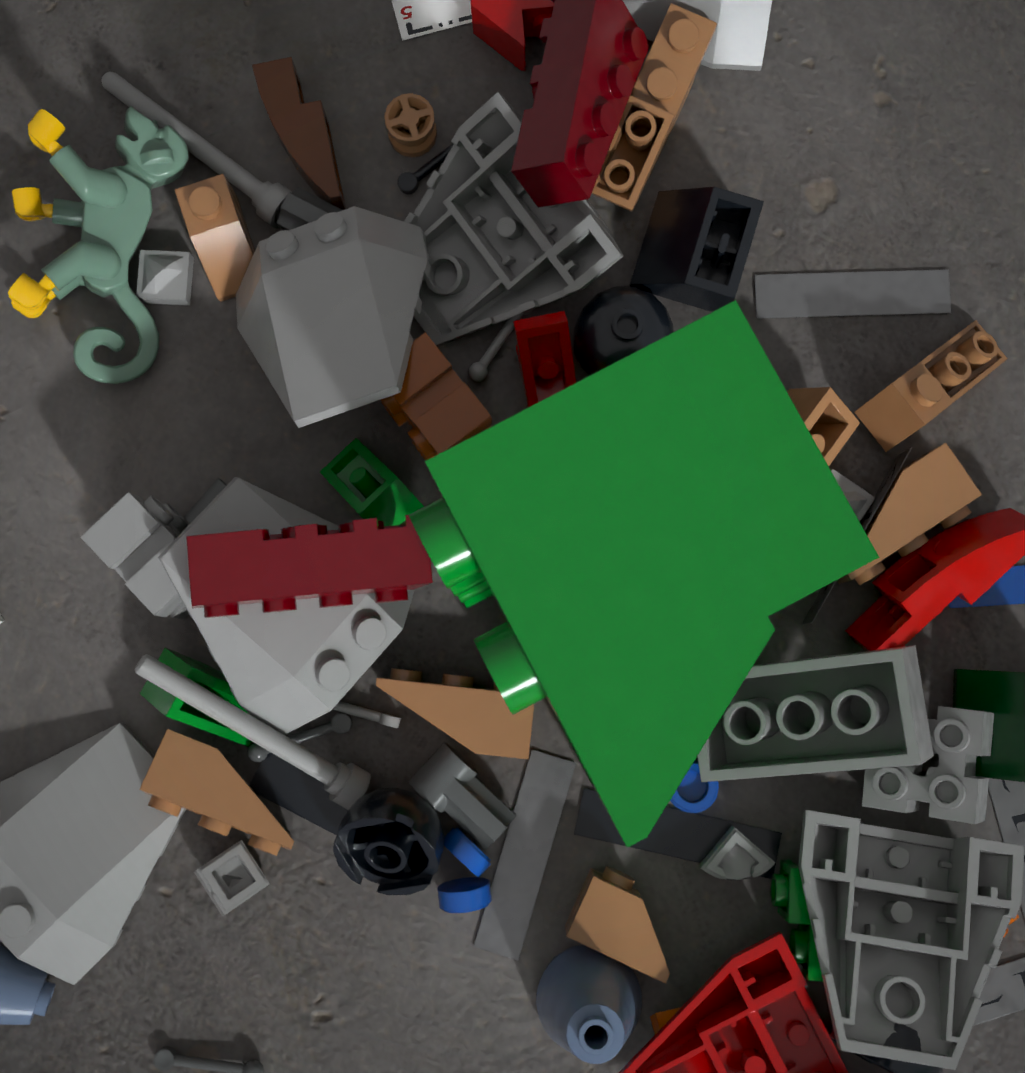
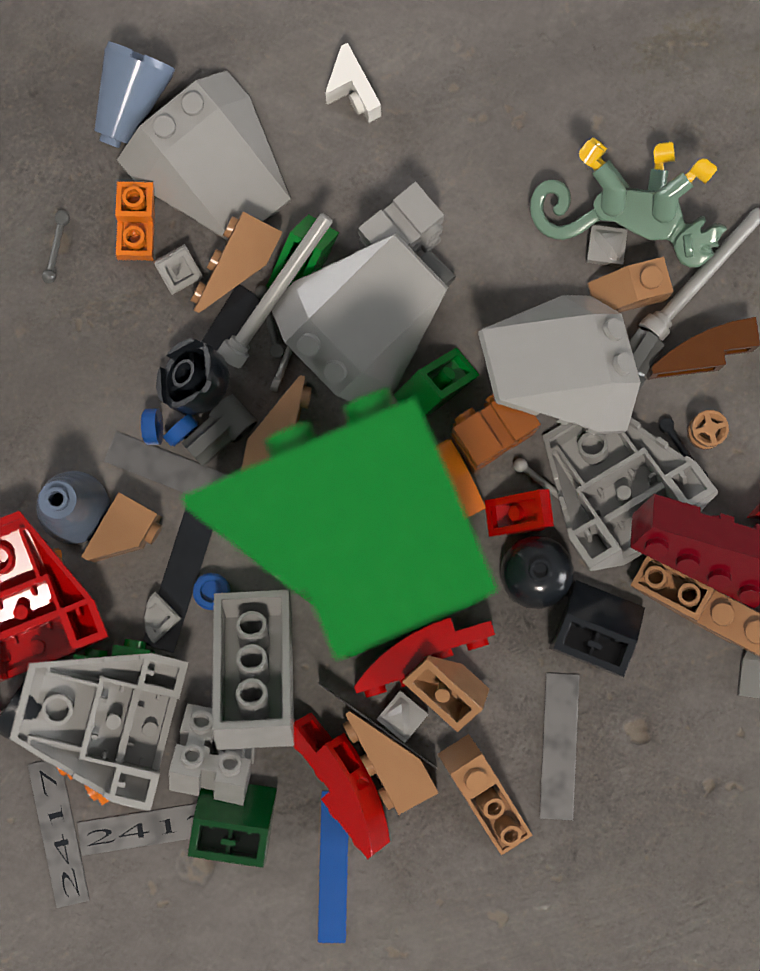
camera: 90 degrees right, 0 degrees up
(162, 948) = (135, 221): none -> orange slope
(305, 565) = (382, 324): dark red wedge -> none

